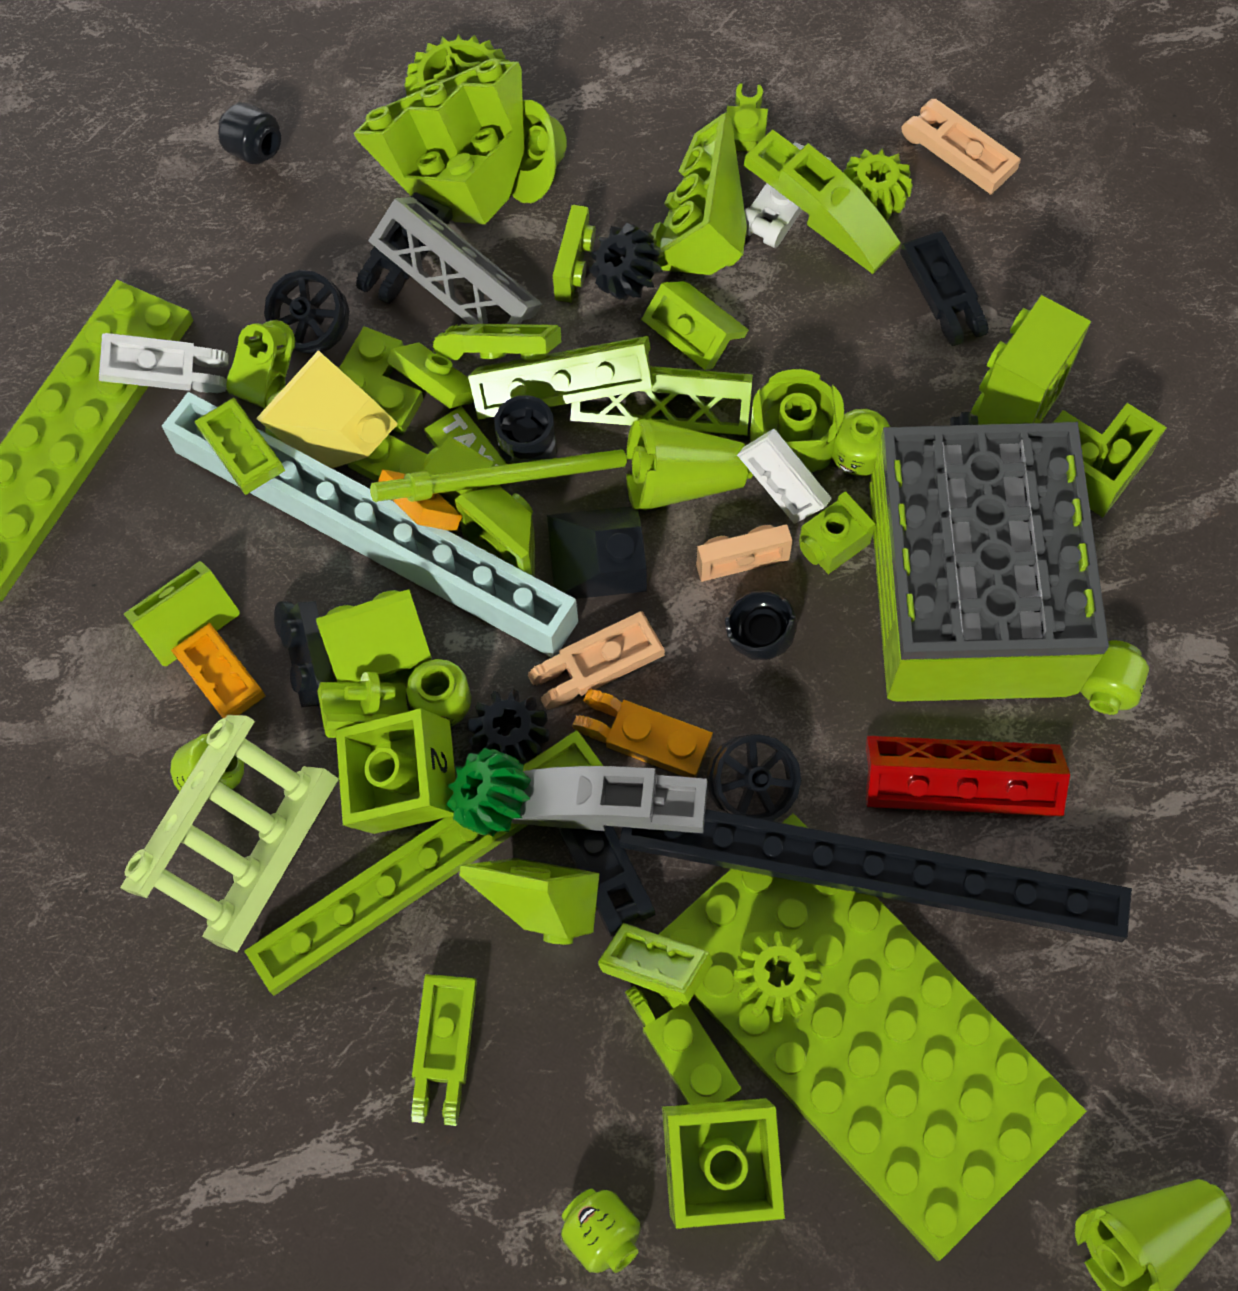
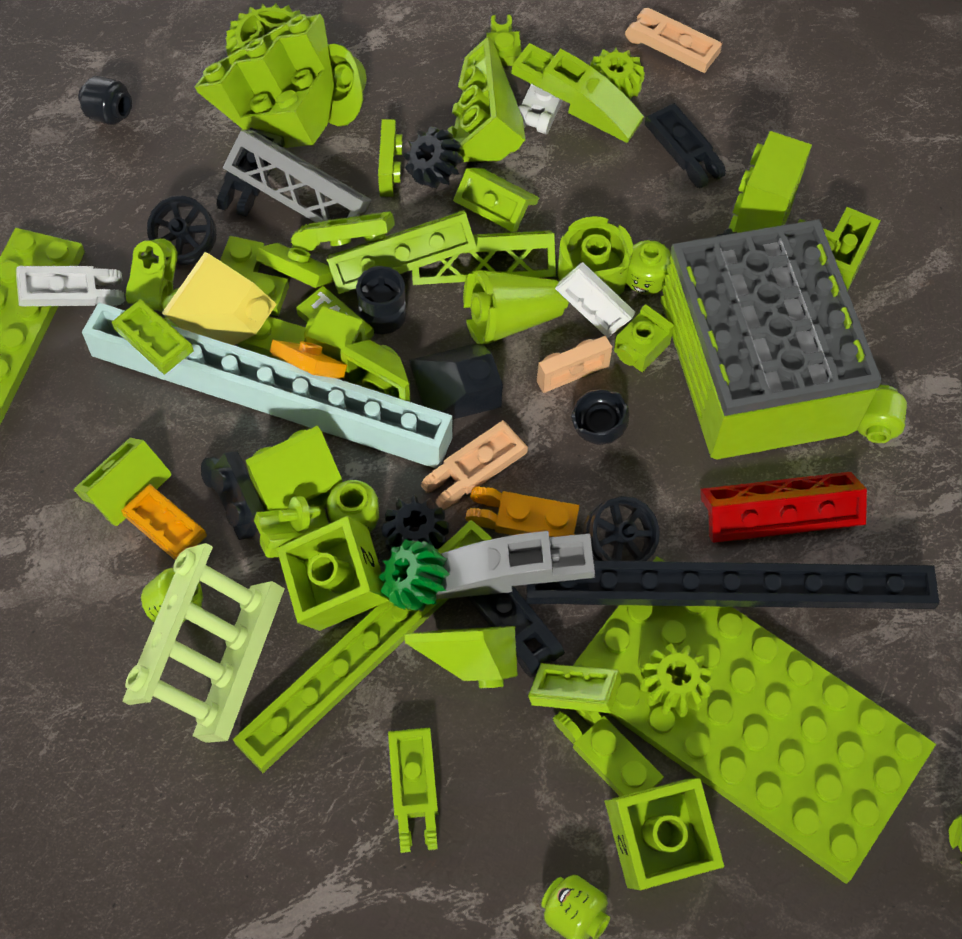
camera: 15 degrees left, 5 degrees down
(421, 485) = (313, 343): lime bar -> none

